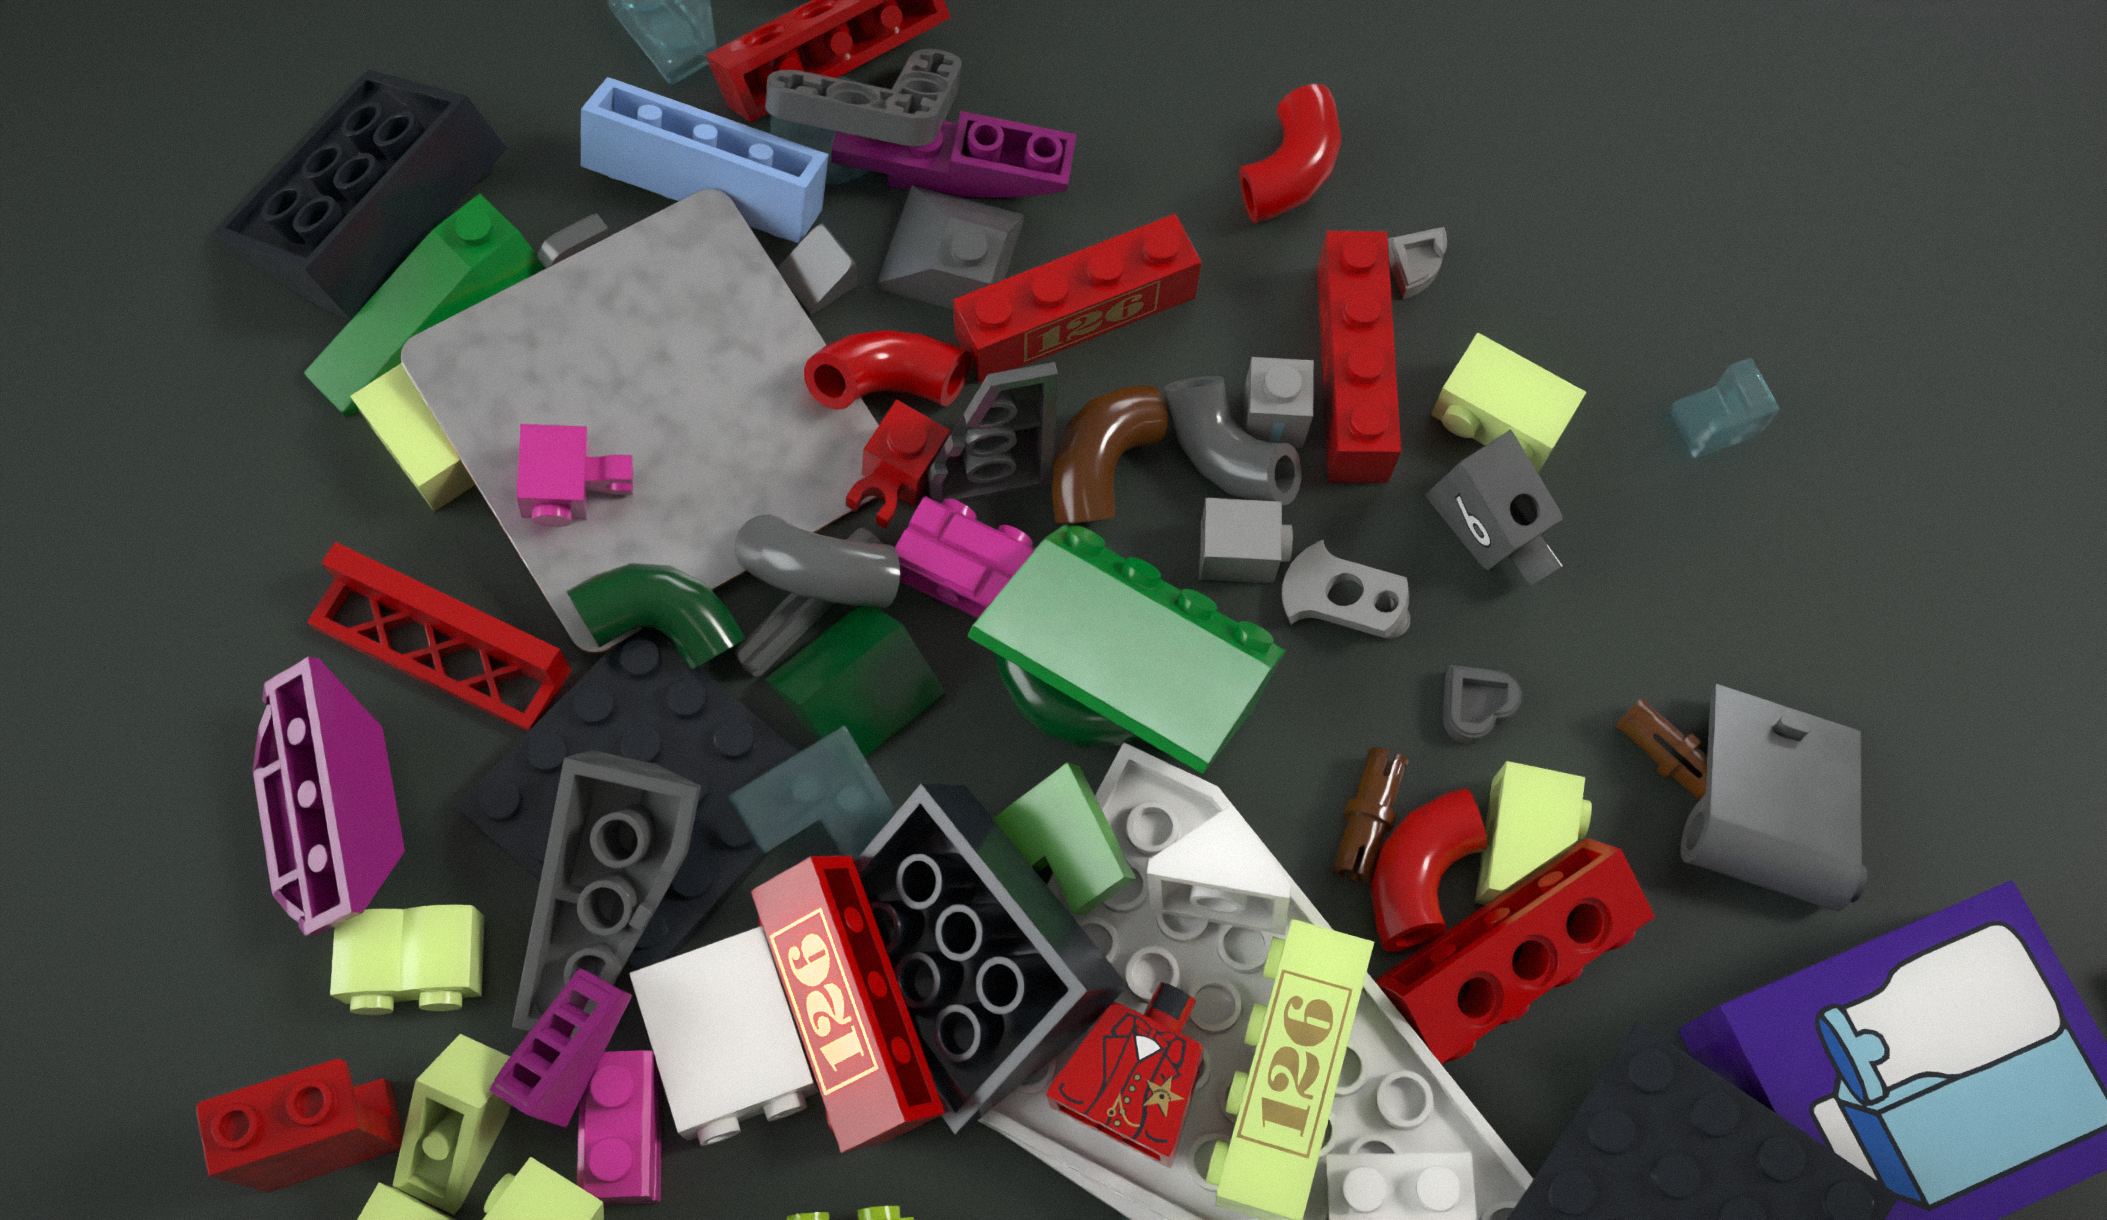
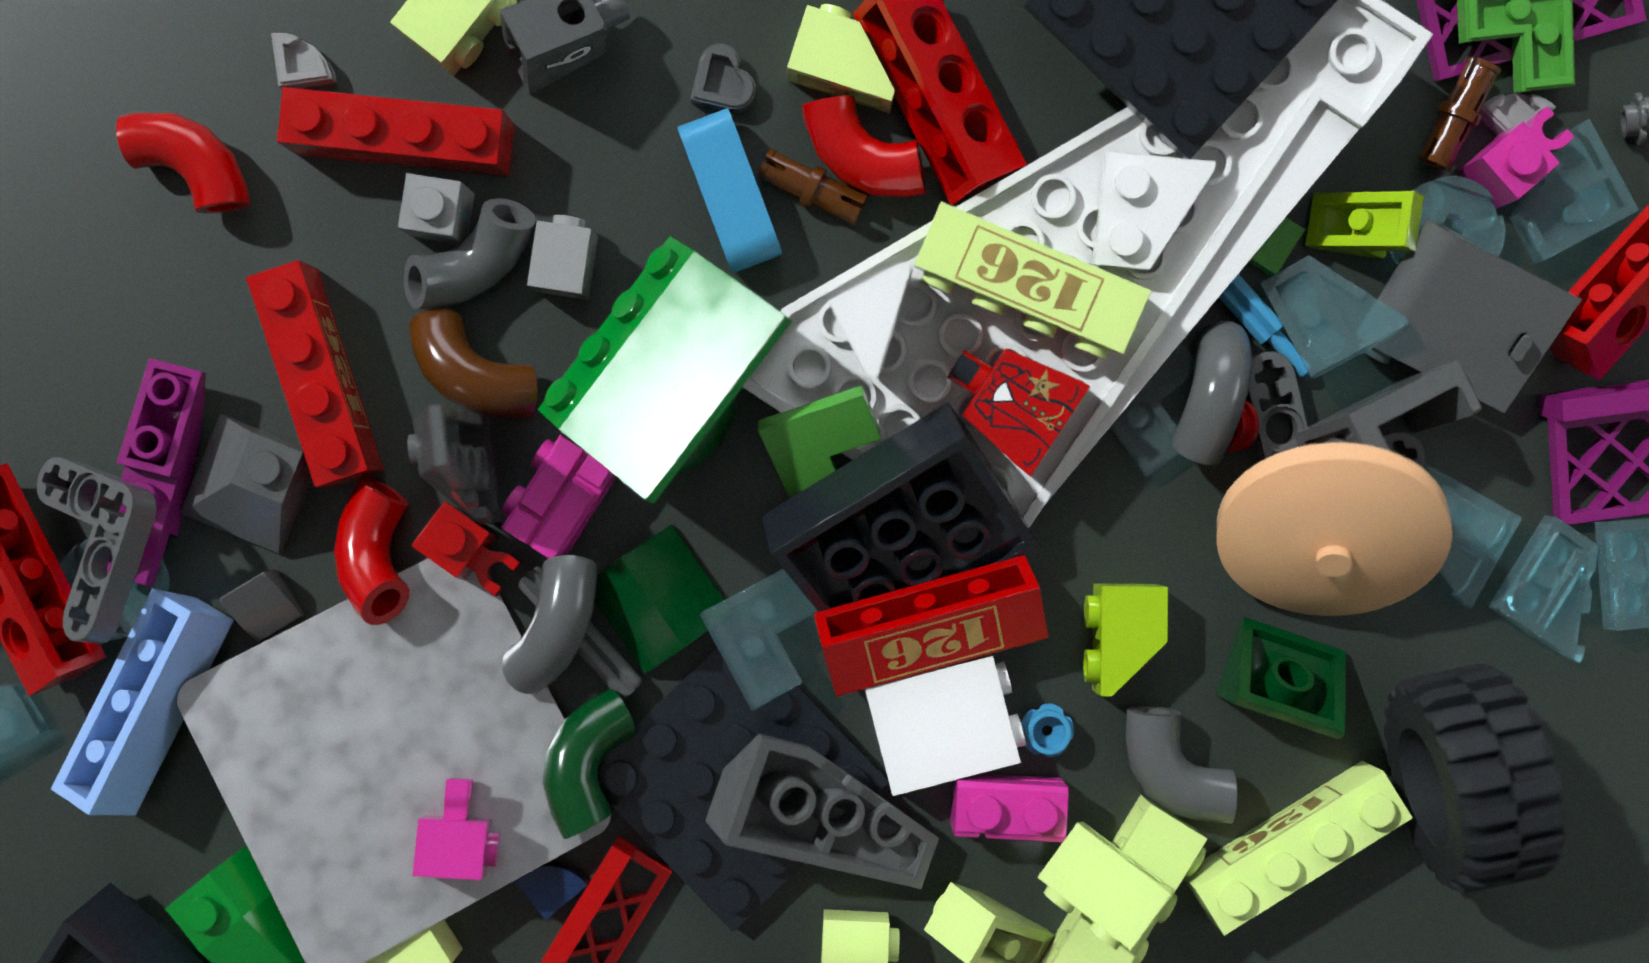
camera: 85 degrees left, 20 degrees up
(508, 593) = (551, 887): none -> dark blue tile
(549, 1067) = (972, 878): magenta slope -> none
(572, 240) = (220, 824): dark grey tile -> none
(702, 1182) = (1051, 744): none -> dark azure plate
(1314, 574) = (599, 203): light grey piece -> none
(1349, 717) = (730, 190): none -> dark azure beam

